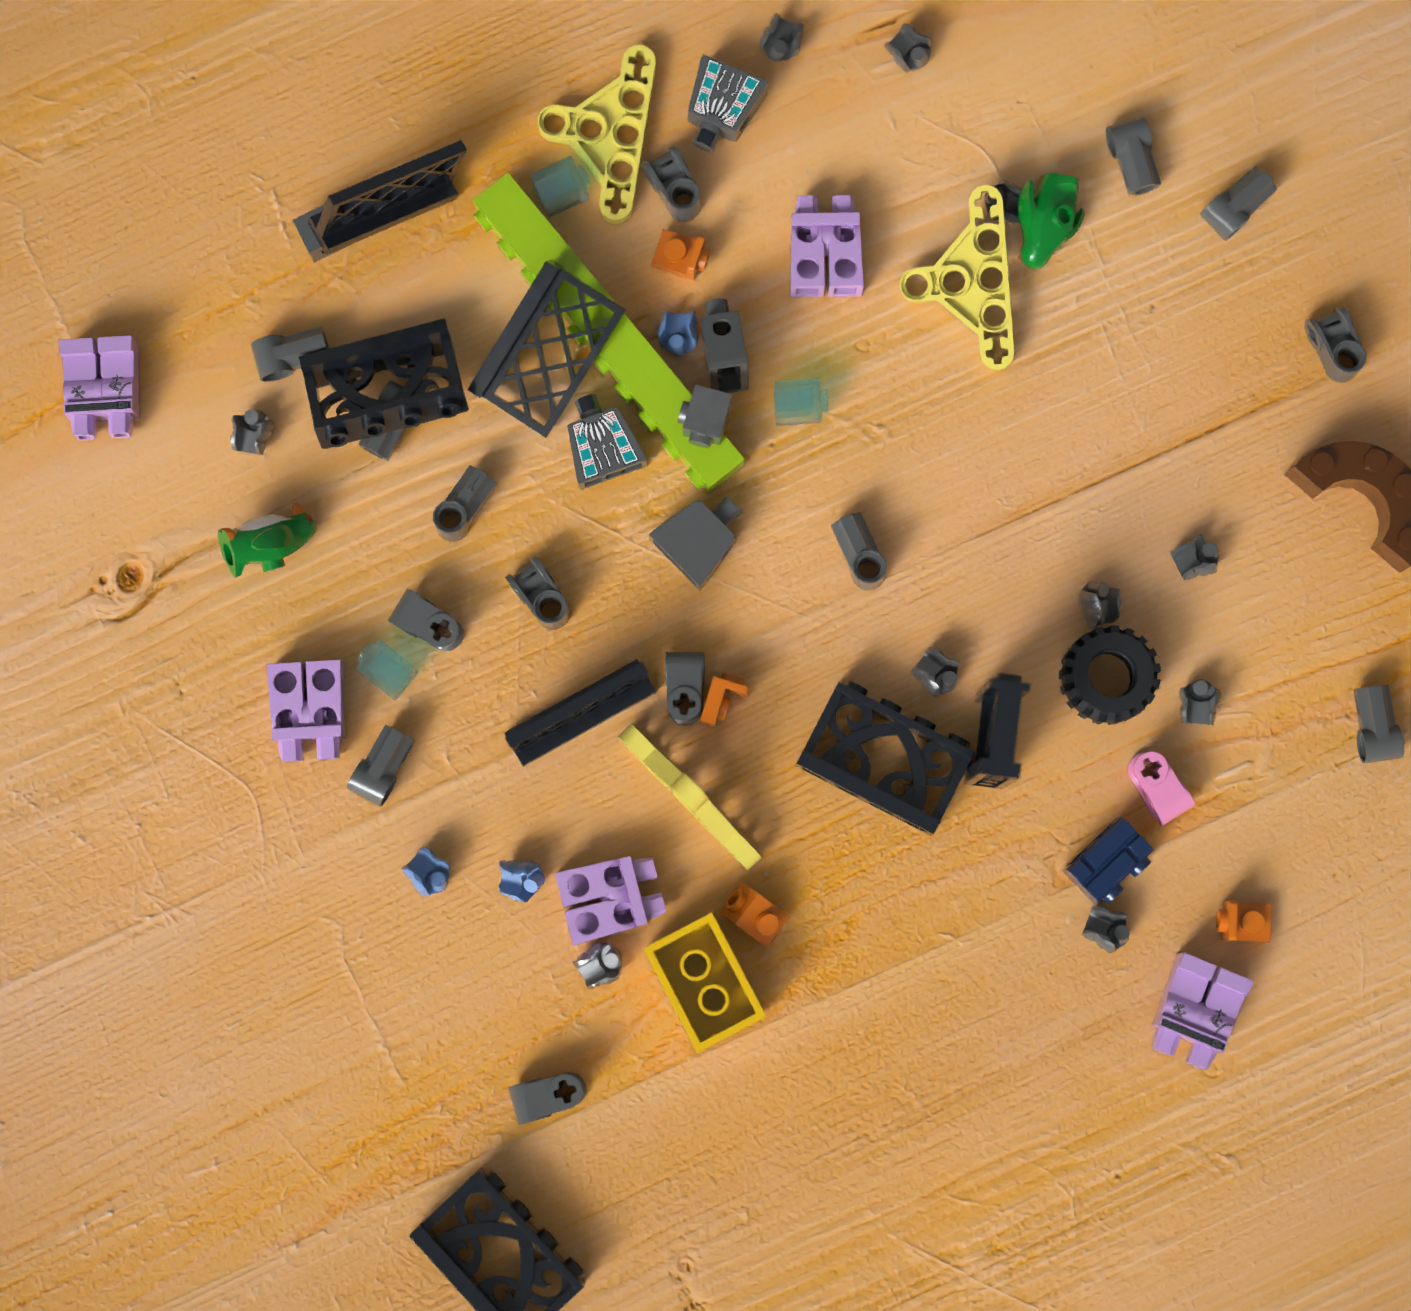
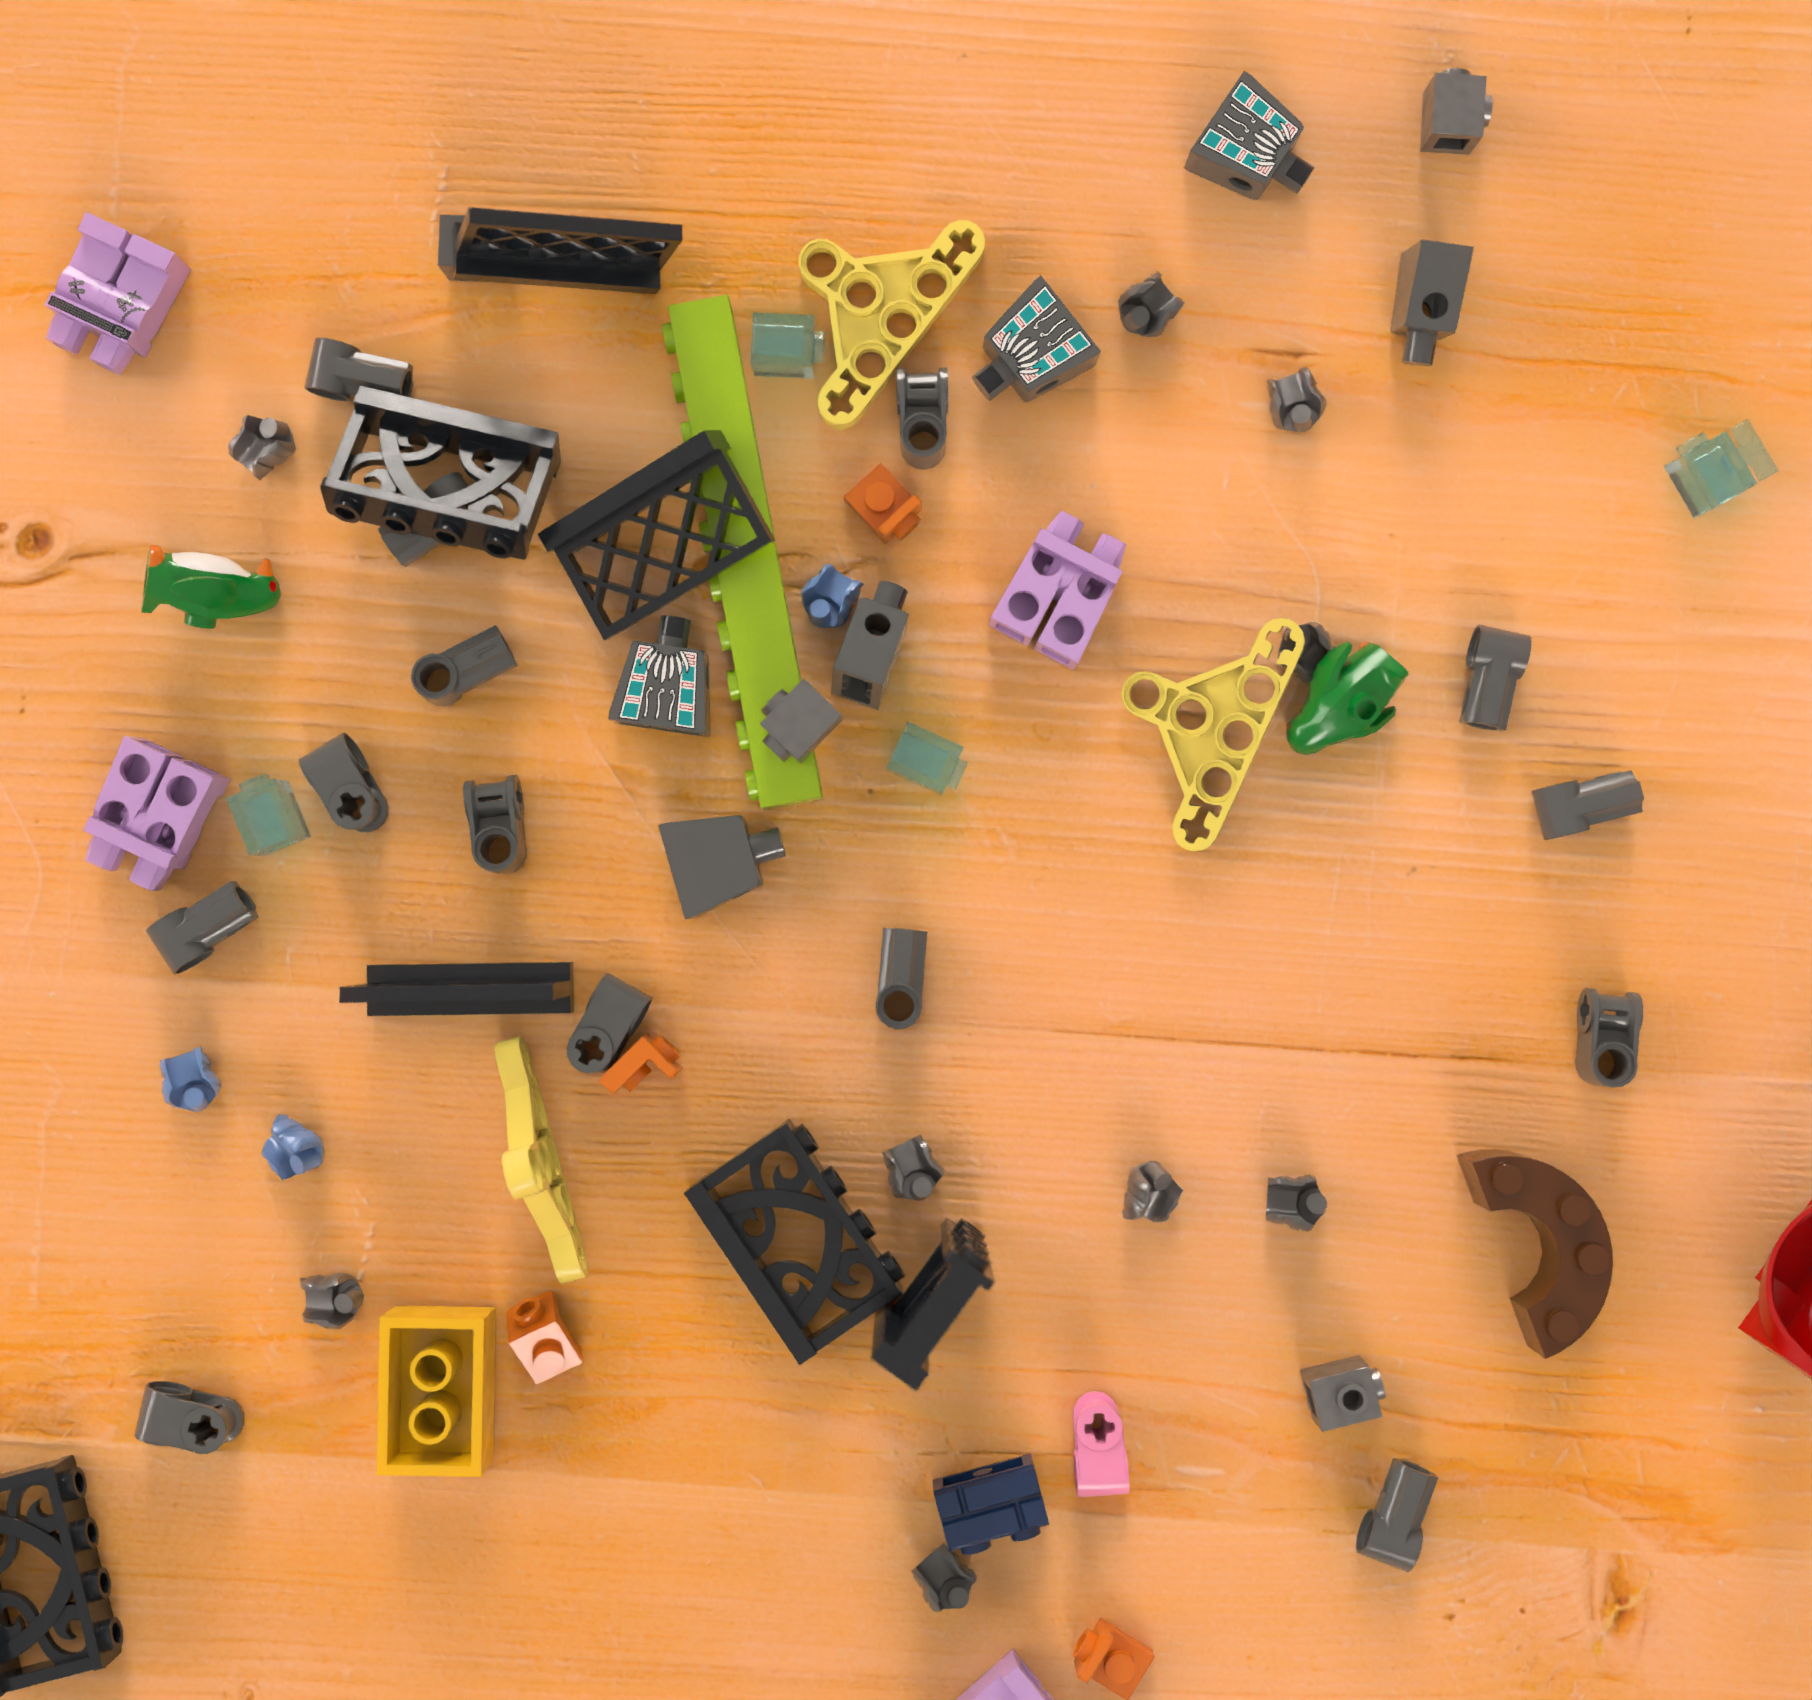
camera: 30 degrees right, 5 degrees up
(619, 896) = (380, 1227): lavender hips -> none
(1136, 657) = (1122, 1330): black tyre -> none
(1199, 702) = (1203, 1374): dark grey arm -> none
(1296, 664) = (1343, 1392): none -> flat silver brick

